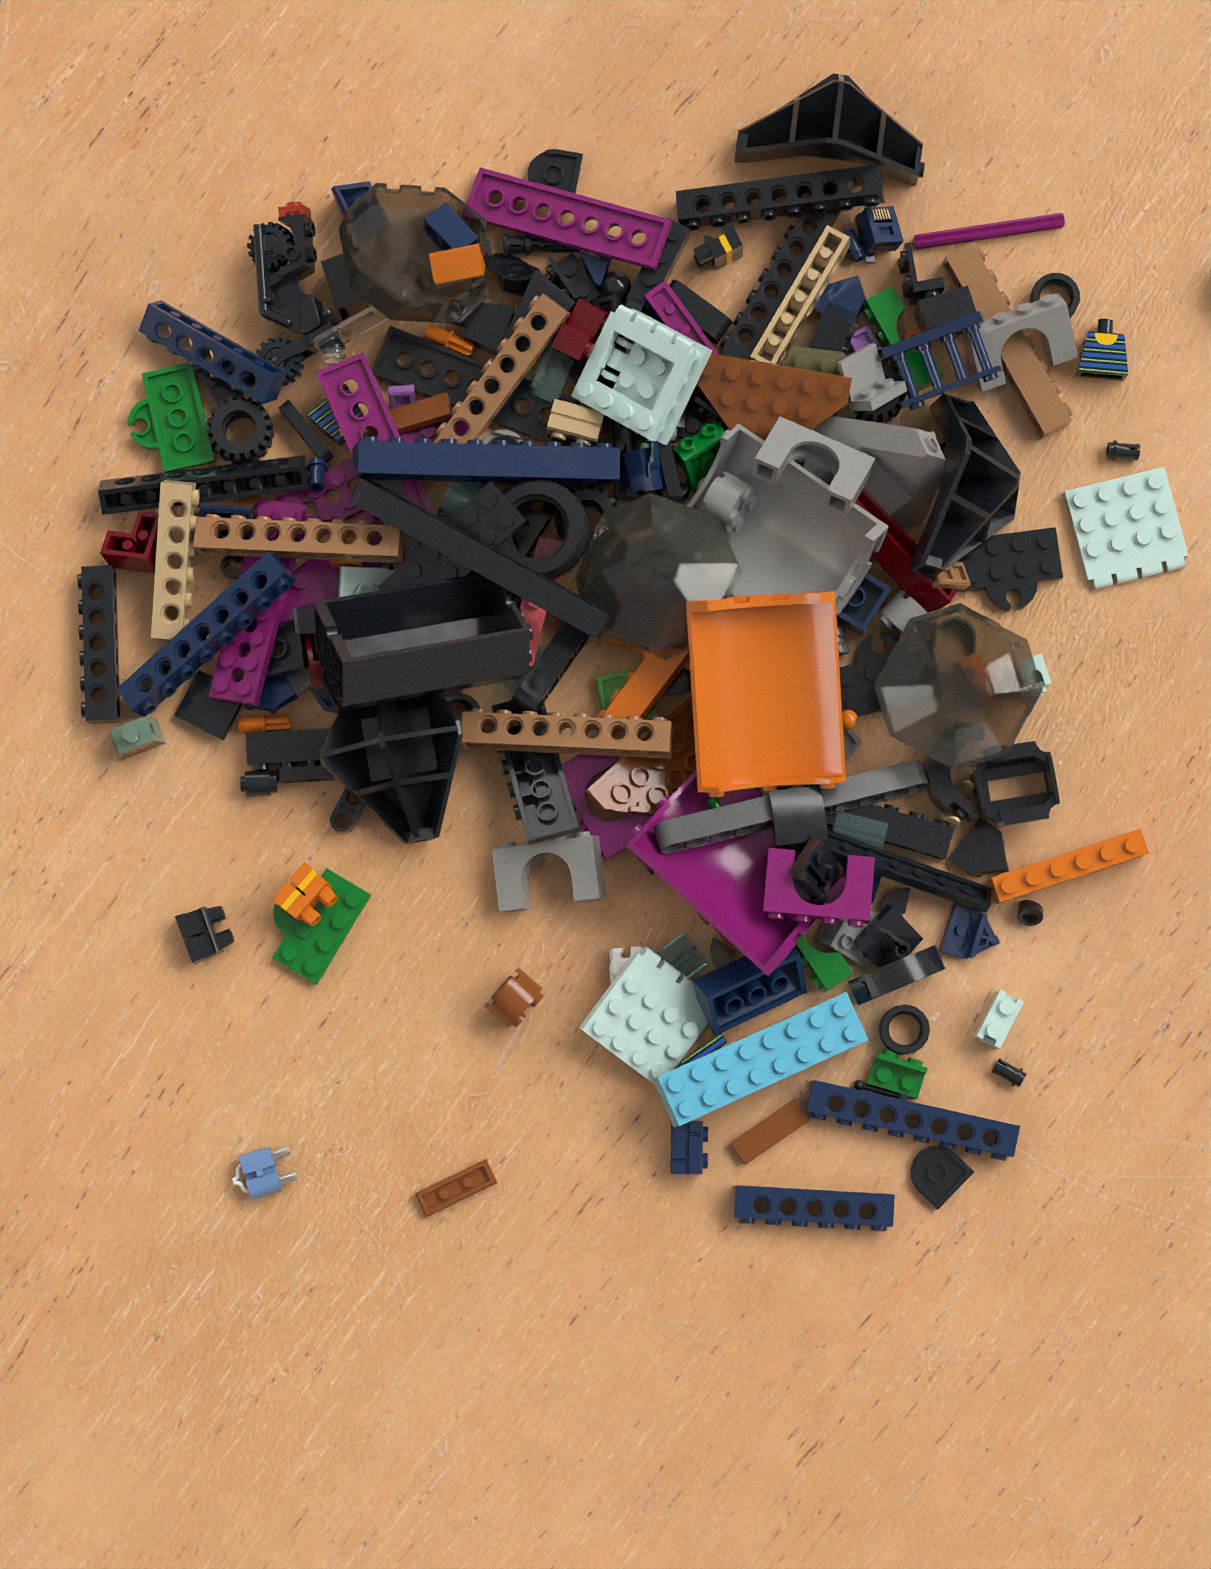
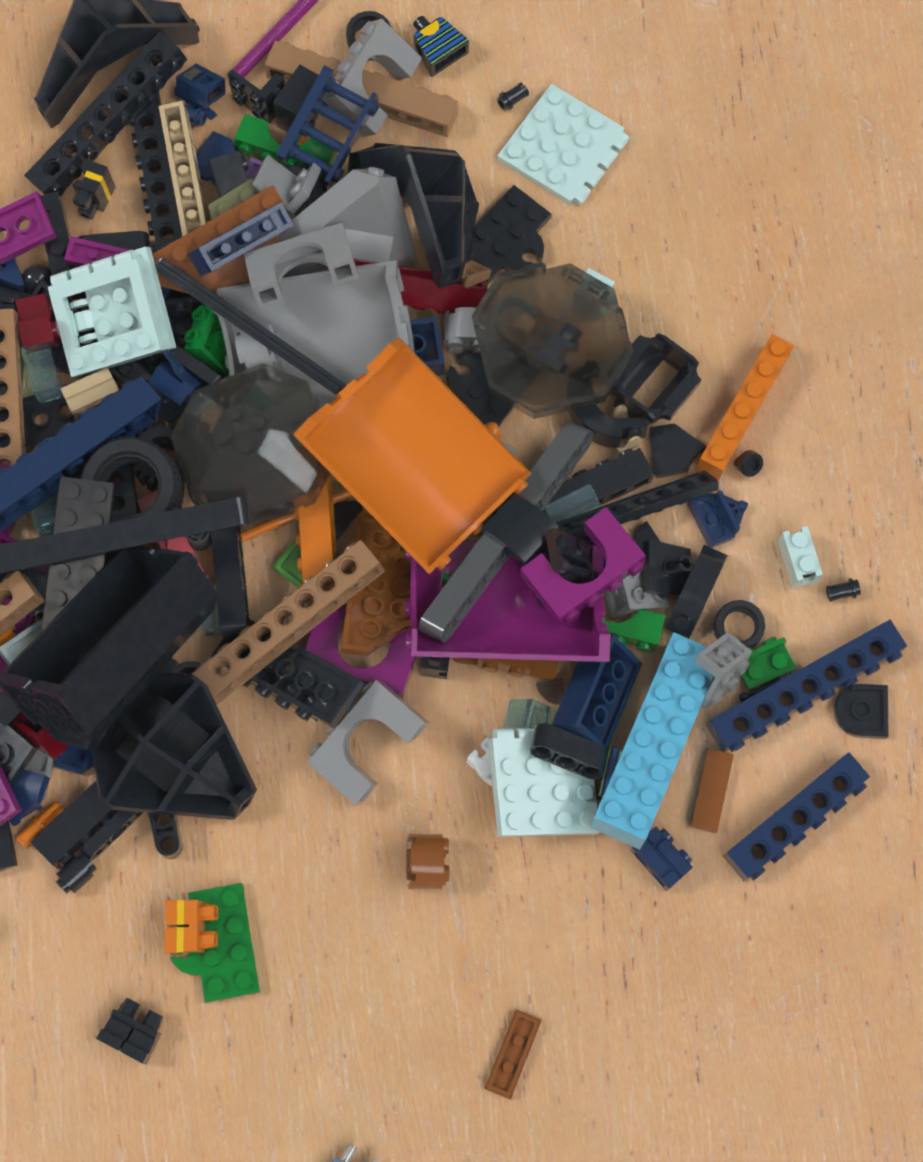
camera: 45 degrees left, 10 degrees down
(687, 1011) = (568, 751): none -> black beam
(733, 480) = (250, 326): none -> black axle
(786, 403) = (240, 239): none -> dark blue slope
(858, 1050) = (725, 661): none -> light grey bracket
(960, 698) = (559, 346): none -> black hips

